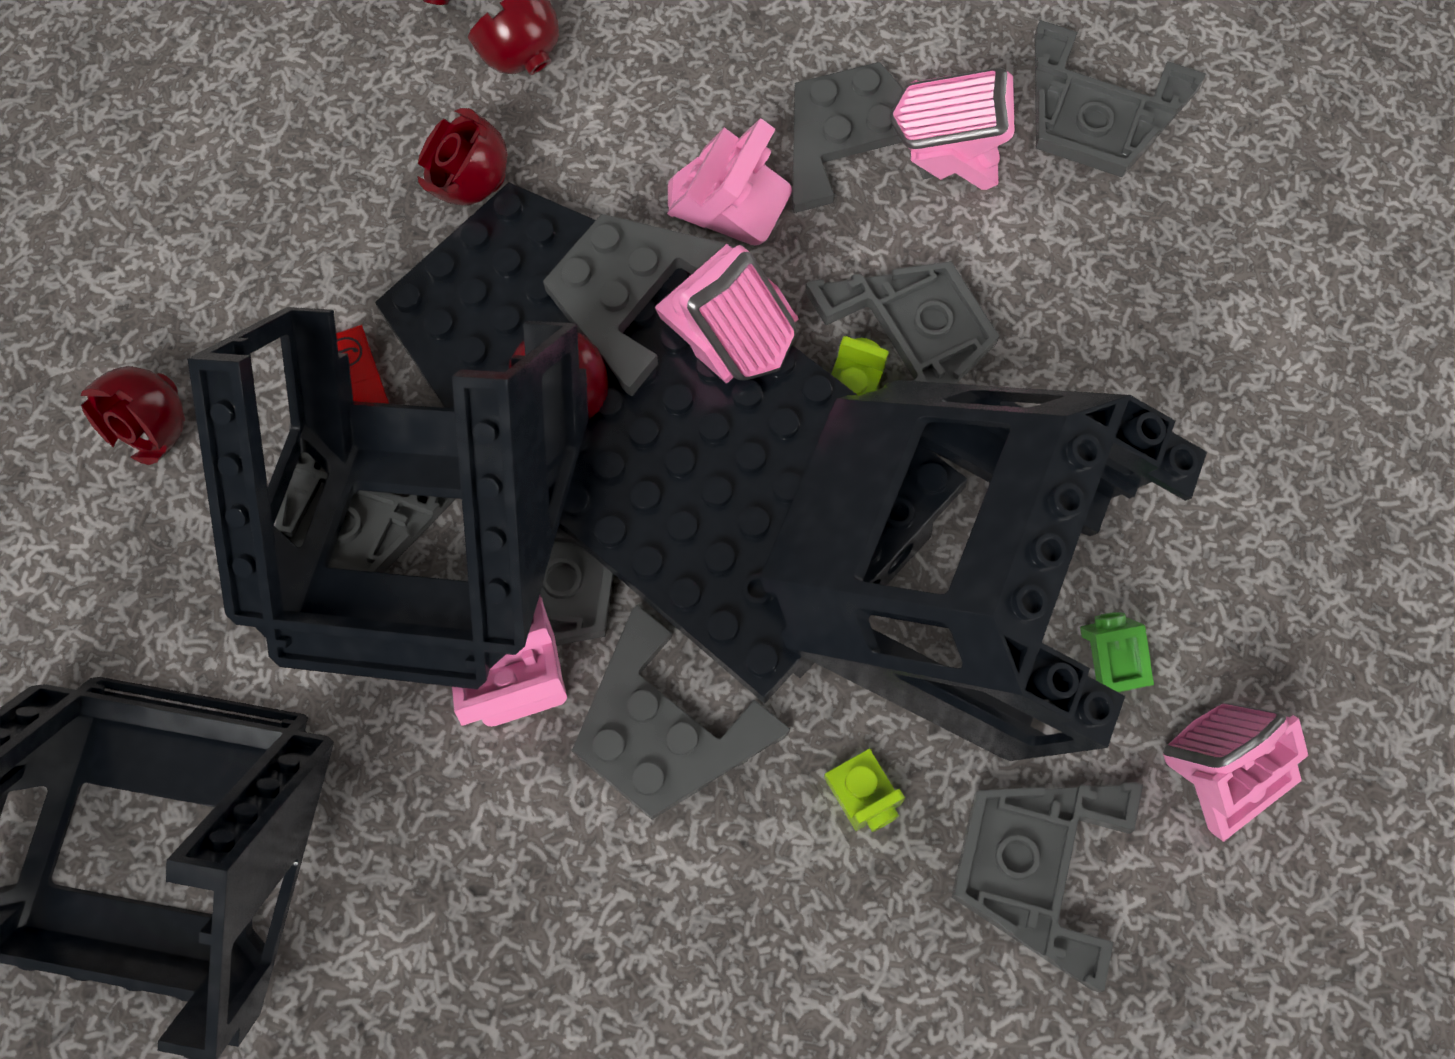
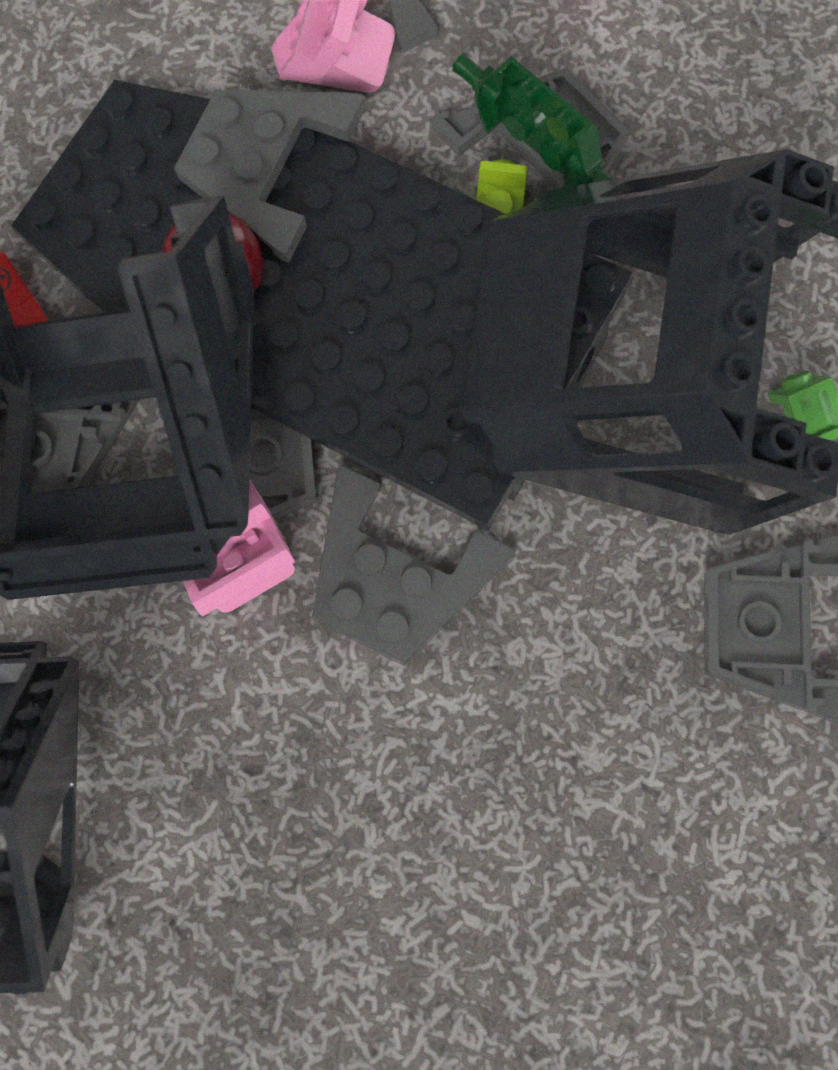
camera: 10 degrees left, 5 degrees up
(463, 159) = (64, 64): dark red cylinder -> none
(732, 316) = (369, 161): bright pink piece -> none
(865, 792) = (601, 594): lime bracket -> none
(906, 305) = (537, 117): none -> dark green plate

